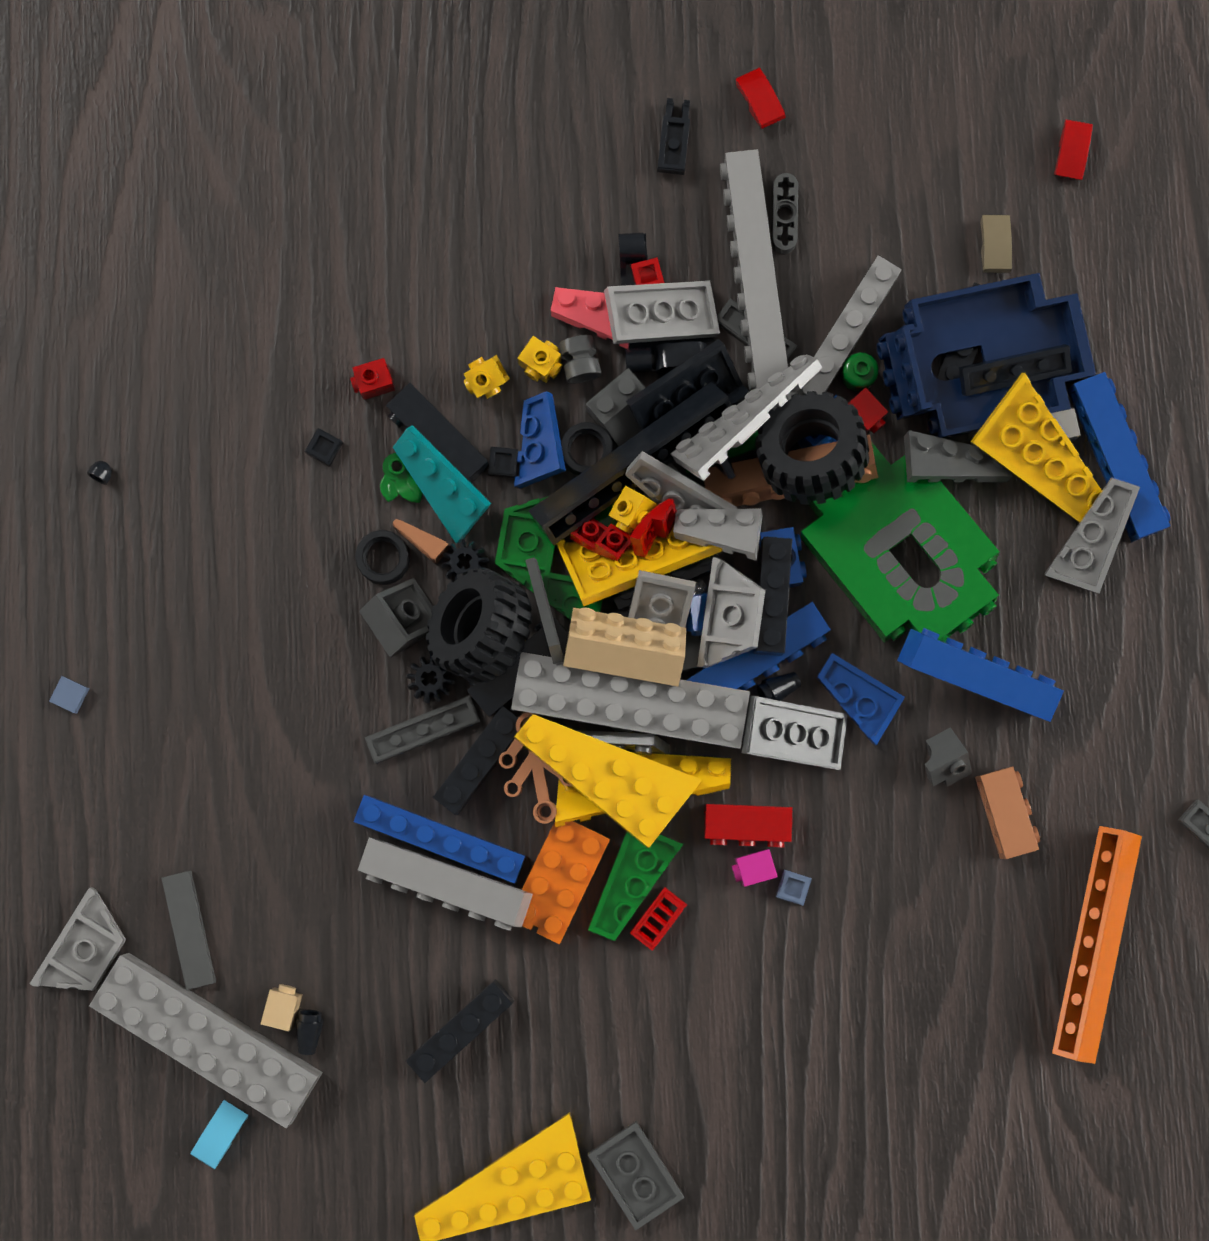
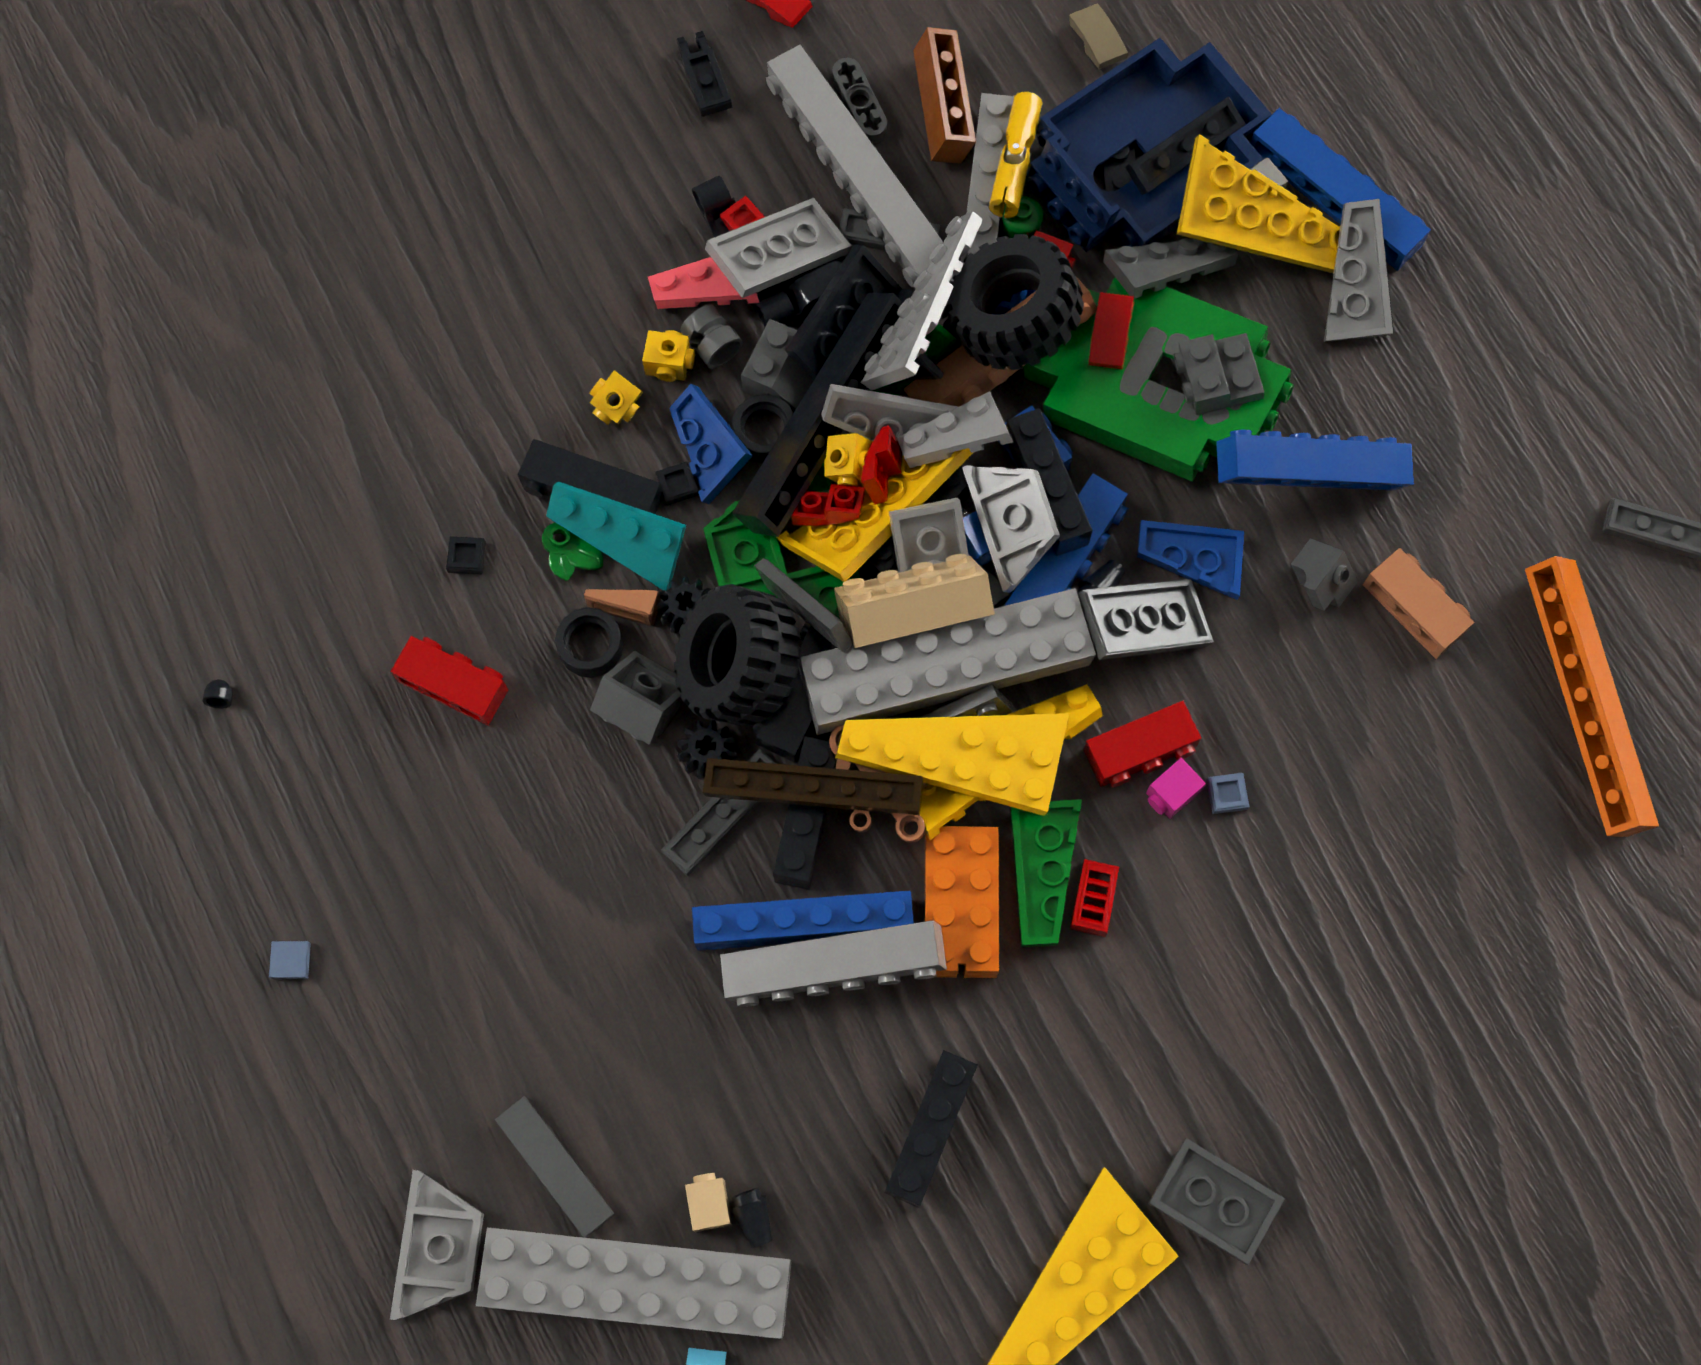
camera: 25 degrees left, 10 degrees down
(270, 539) = (450, 679): none -> red brick
(372, 379) = (488, 457): red brick -> none
(488, 750) = (813, 786): none -> dark brown plate
(850, 241) = (944, 95): none -> dark orange brick
(879, 498) = (1111, 330): none -> red slope
(889, 307) = (1019, 136): none -> yellow piece
(942, 572) = (1218, 372): none -> dark grey plate

